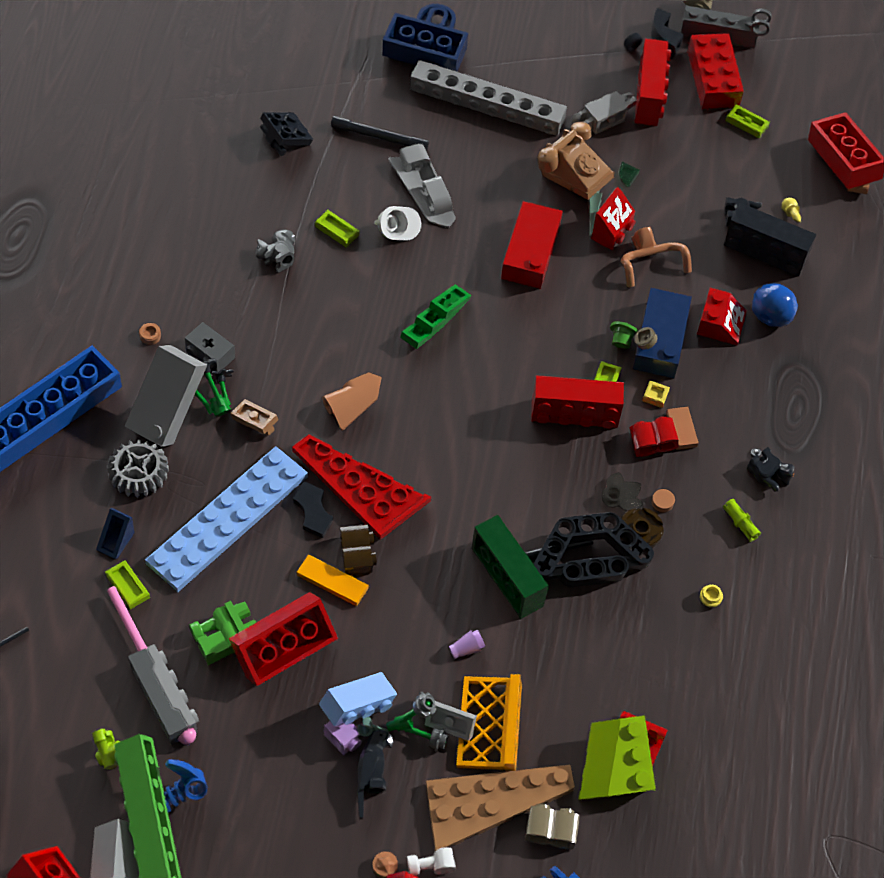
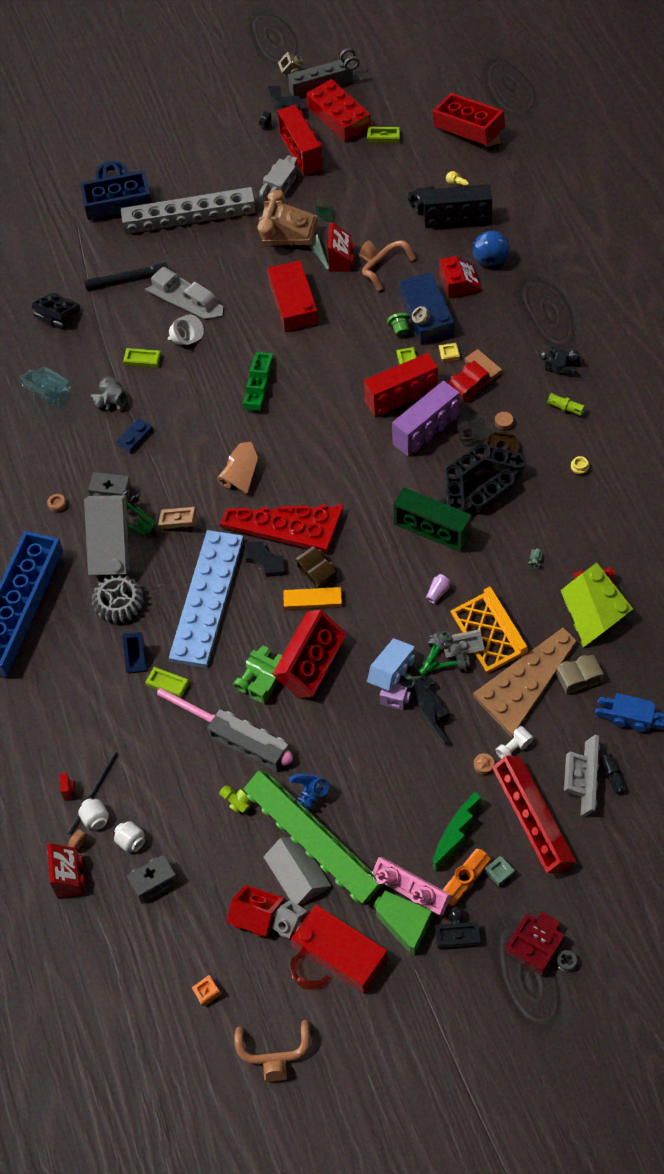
camera: 20 degrees left, 0 degrees up
(221, 203) = (44, 383): none -> clear light blue brick
(273, 305) = (134, 435): none -> dark blue plate
(578, 452) = (425, 418): none -> medium lavender brick
(594, 669) = (535, 556): none -> sand green piece

